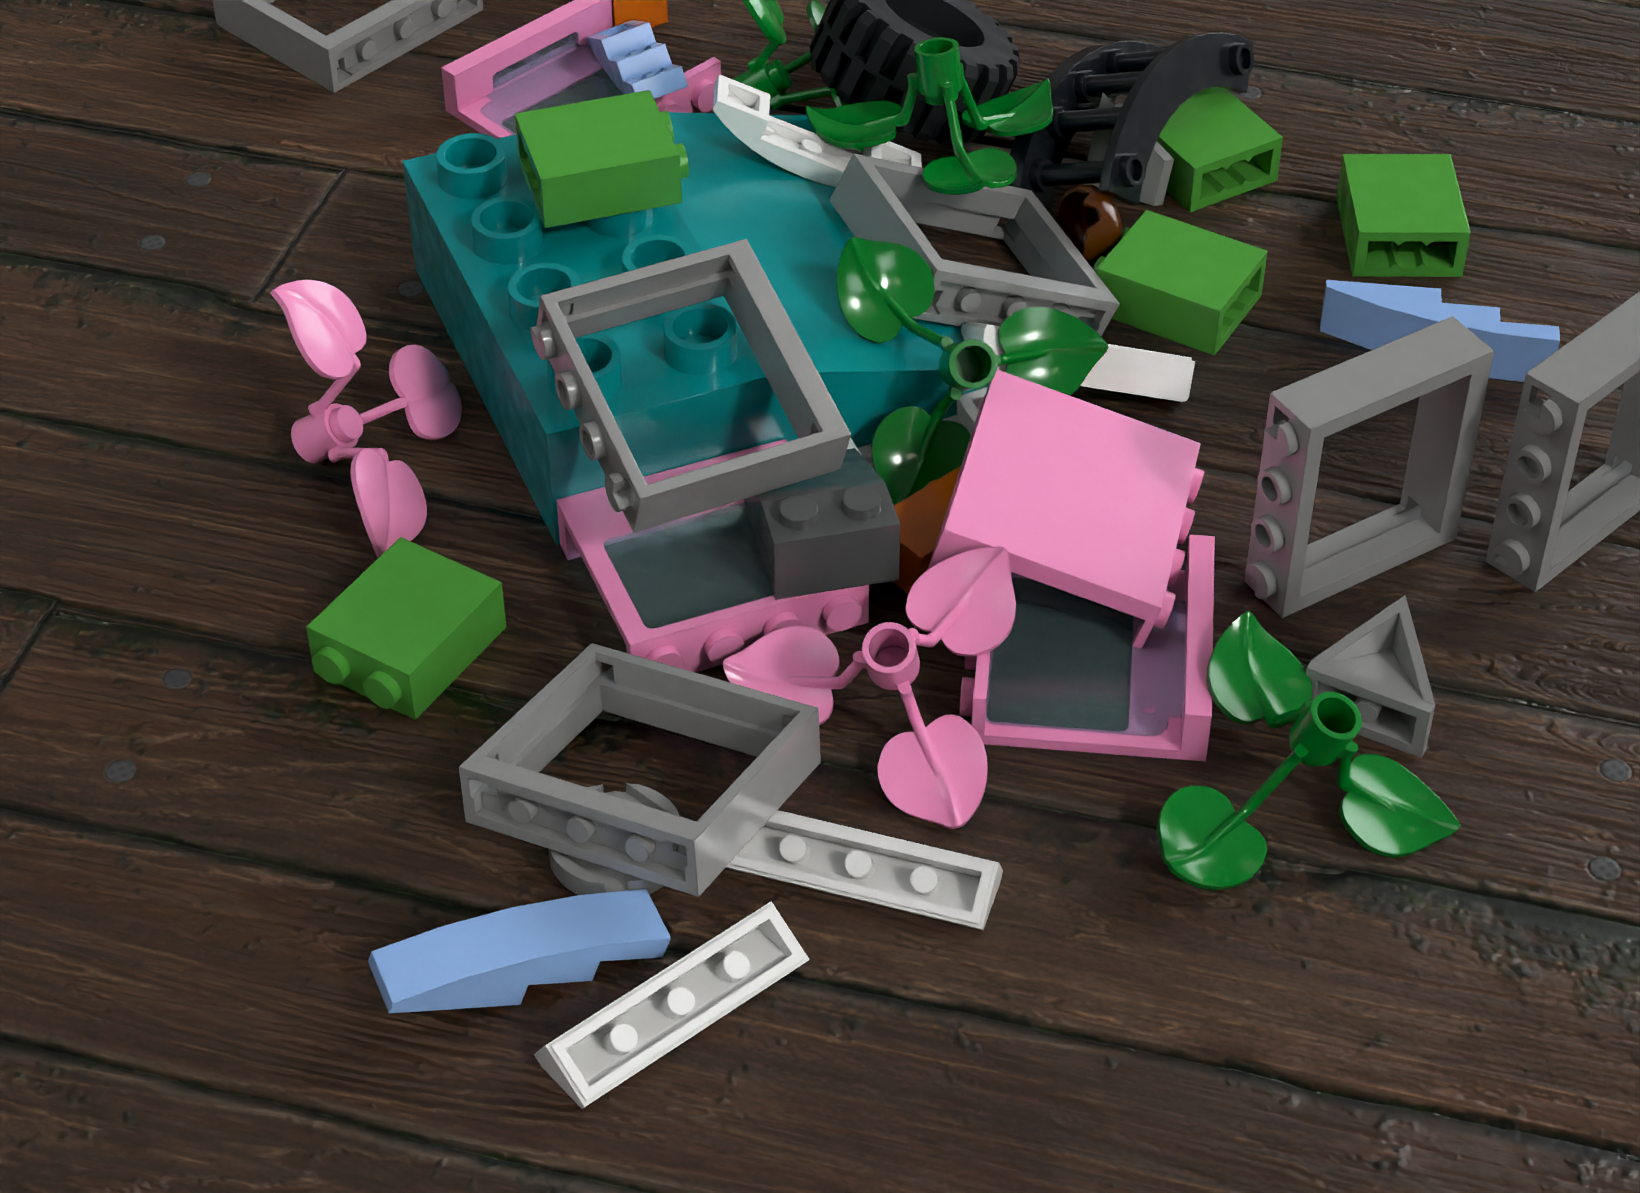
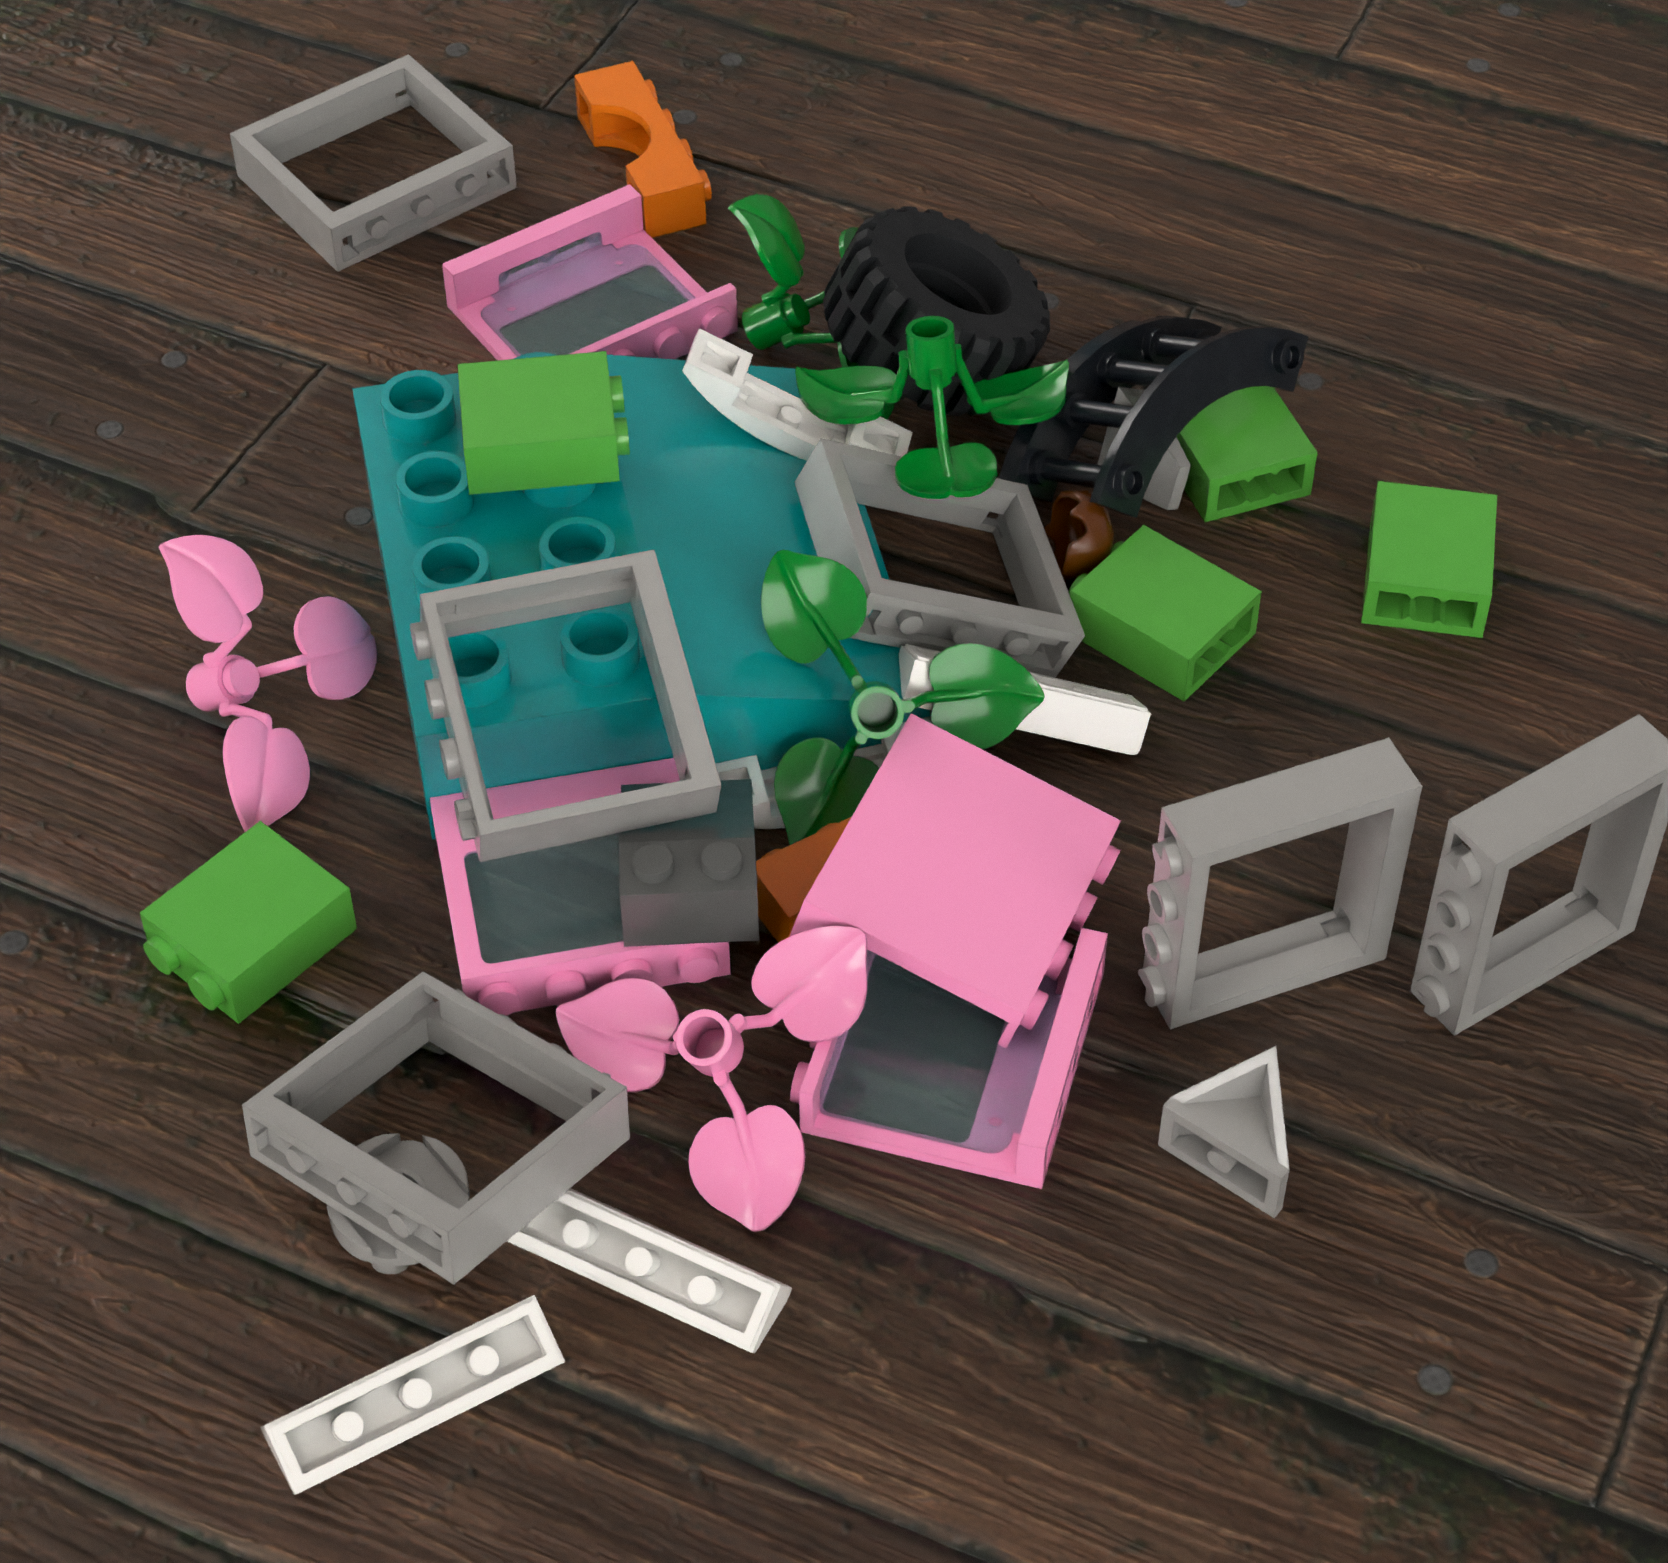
camera: 10 degrees right, 5 degrees up
(502, 952) = (248, 1312): light blue slope -> none
(636, 59) = (647, 280): light blue slope -> none
(1259, 679) = (1112, 1111): green plant -> none
(1383, 313) = (1446, 717): light blue slope -> none

